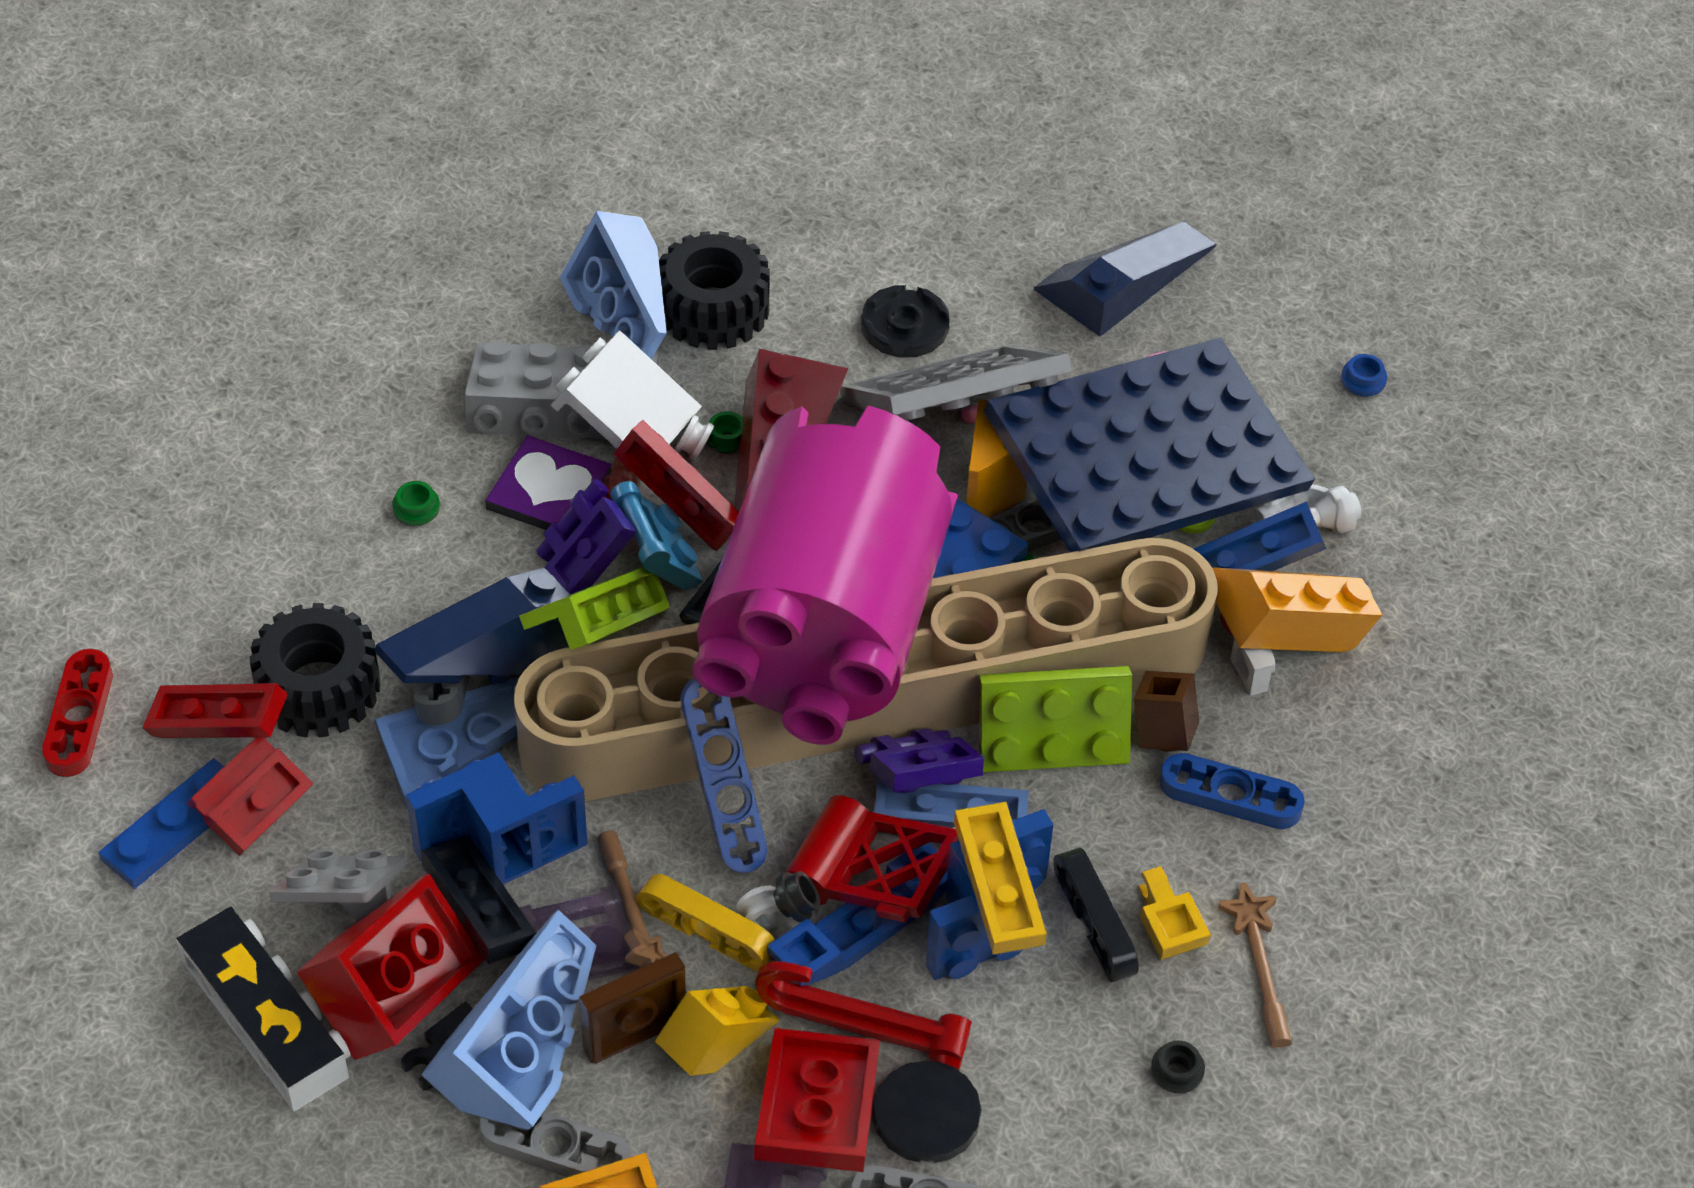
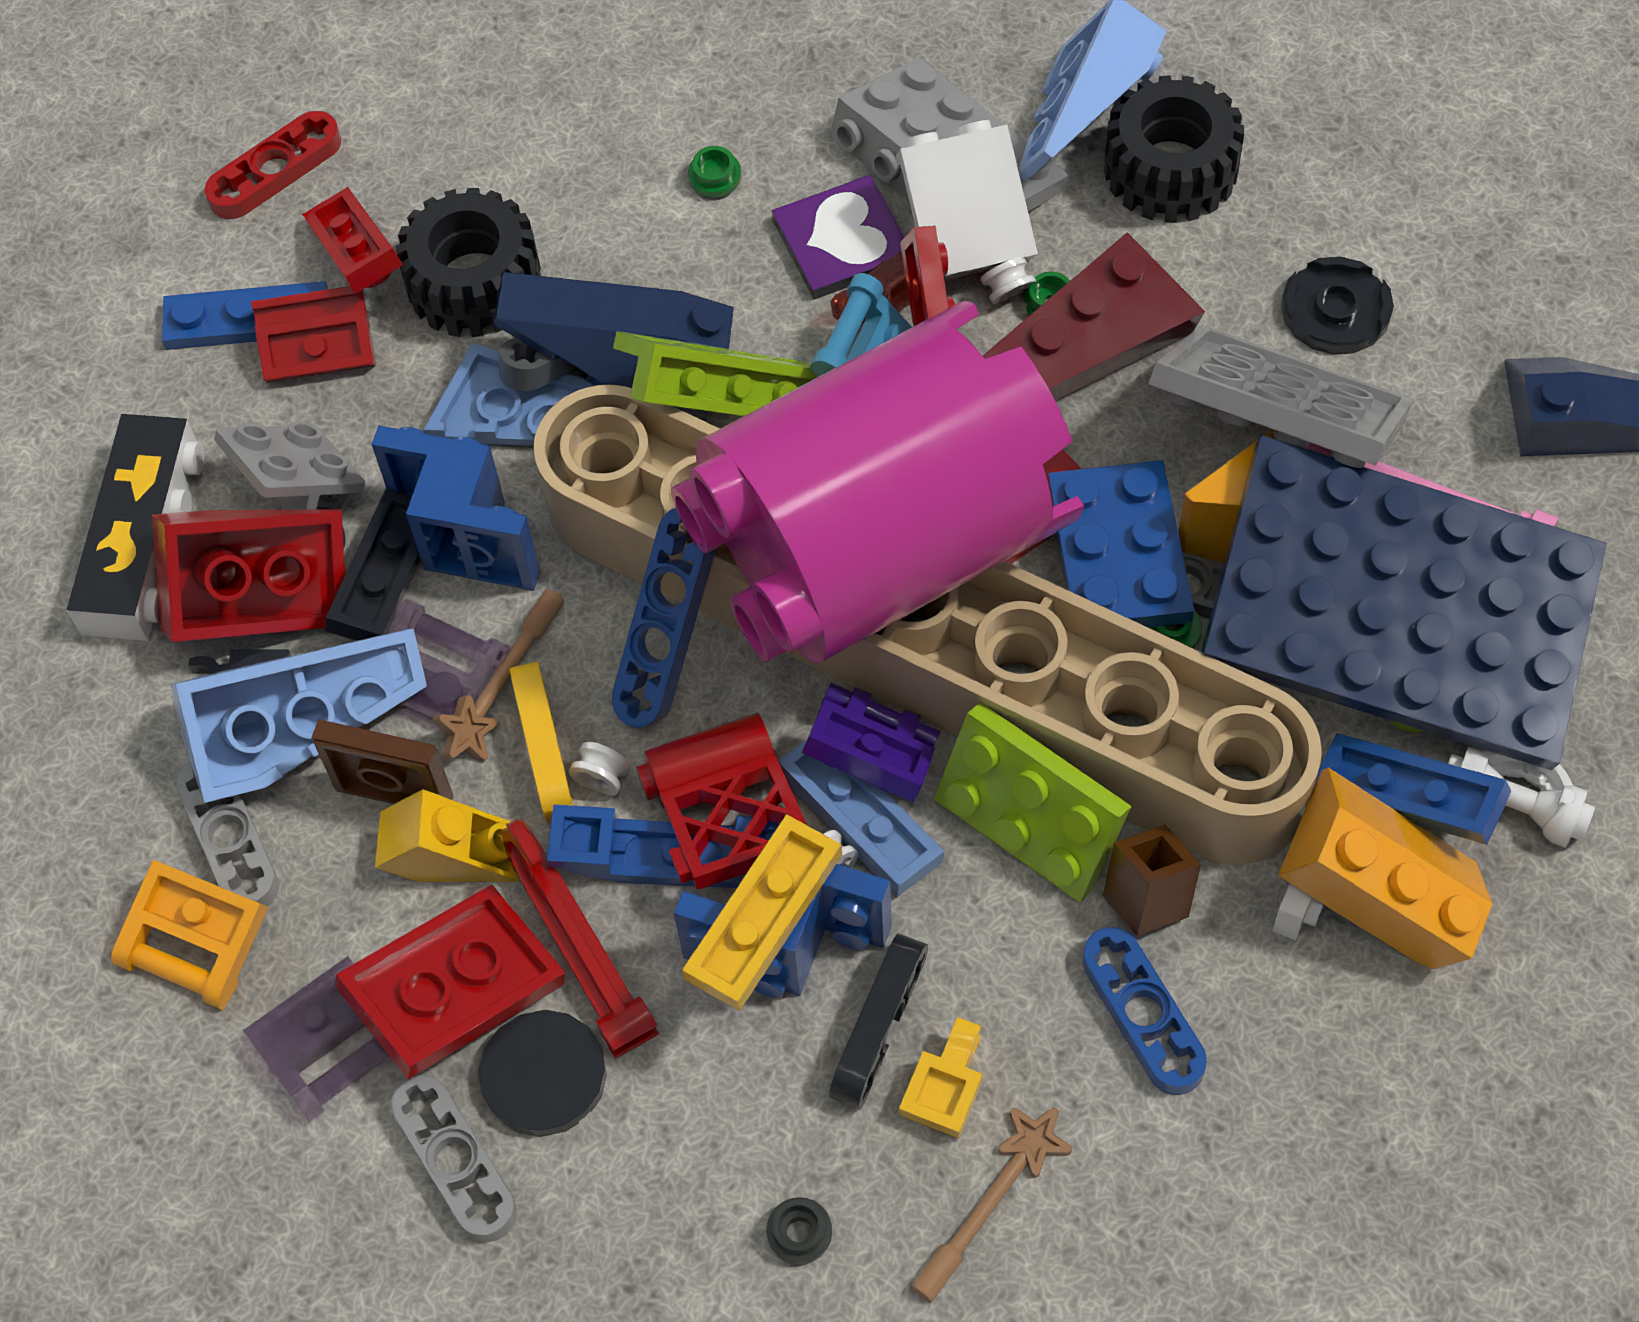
camera: 50 degrees right, 10 degrees up
(585, 539) = (800, 307): dark purple plate -> none
(796, 896) = (633, 784): pearl dark grey plate -> none

